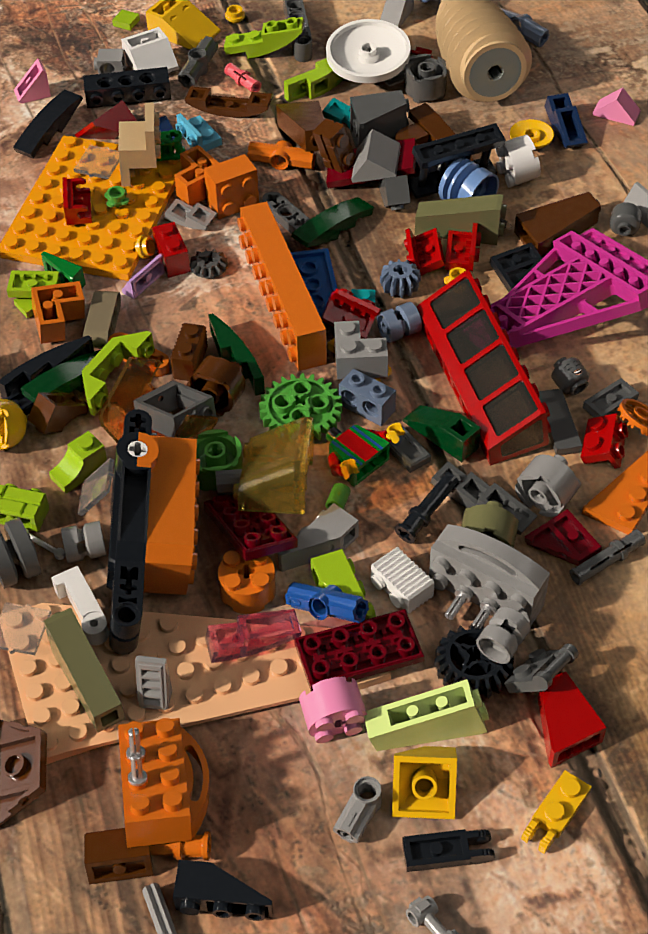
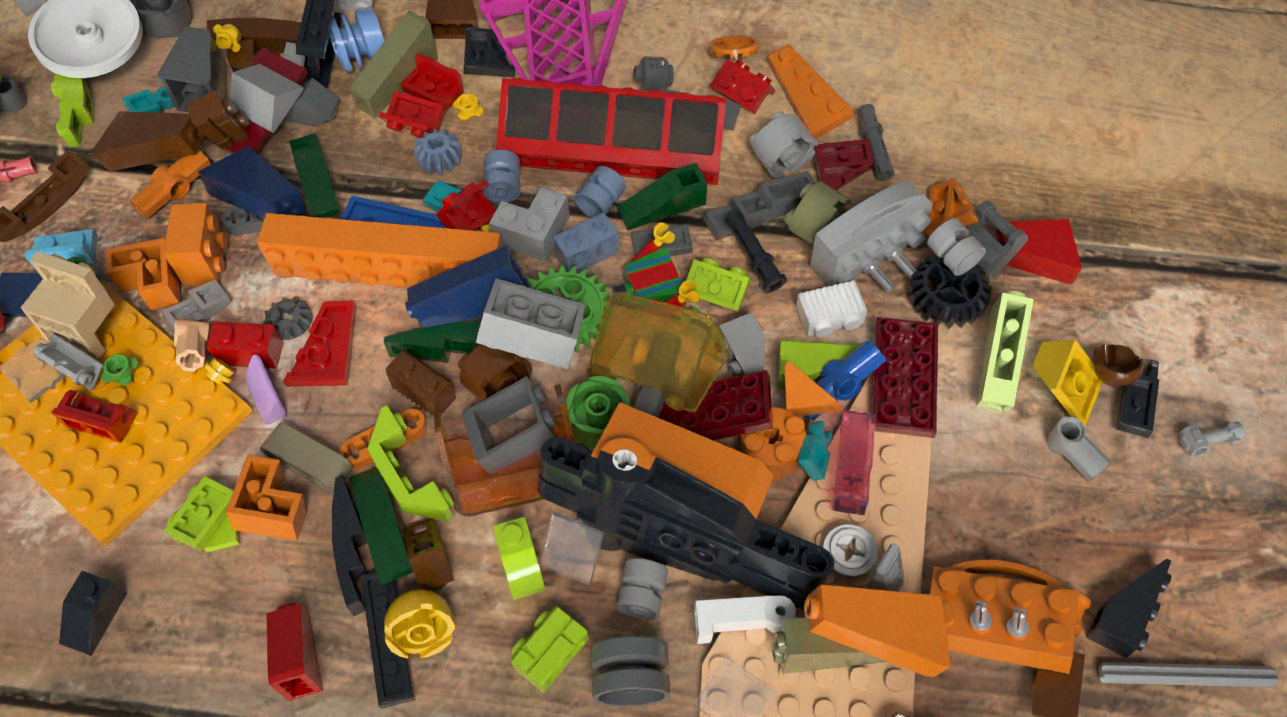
camera: 65 degrees left, 10 degrees up
(59, 553) = (632, 626): white hinge -> none
(68, 271) = (209, 464): green slope -> none
(98, 681) = (884, 624): none -> orange slope
(105, 171) = (70, 361): none -> light grey hinge
(143, 222) = (190, 343): none -> light nougat piece
(182, 651) = (864, 546): none -> white gear
(194, 294) = (327, 349): none -> red wing
(248, 603) = (814, 452): none -> teal plate
(255, 377) = (531, 323): none -> light grey brick
(273, 340) = (463, 290): none -> dark blue slope
(295, 574) = (805, 396): none -> orange slope
(300, 193) = (251, 185): none -> dark blue slope
(333, 709) = (969, 423): bright pink brick -> none
(382, 494) = (719, 285): none -> lime bracket
(414, 118) = (227, 37): none -> yellow plate
(421, 386) = (599, 192): none -> sand blue wheel
(460, 810) = (1117, 365): none -> reddish brown hair
(557, 809) = (1123, 298): yellow hinge -> none
(563, 631) = (949, 203): none -> orange wing
(609, 399) = (698, 59): dark grey plate -> none

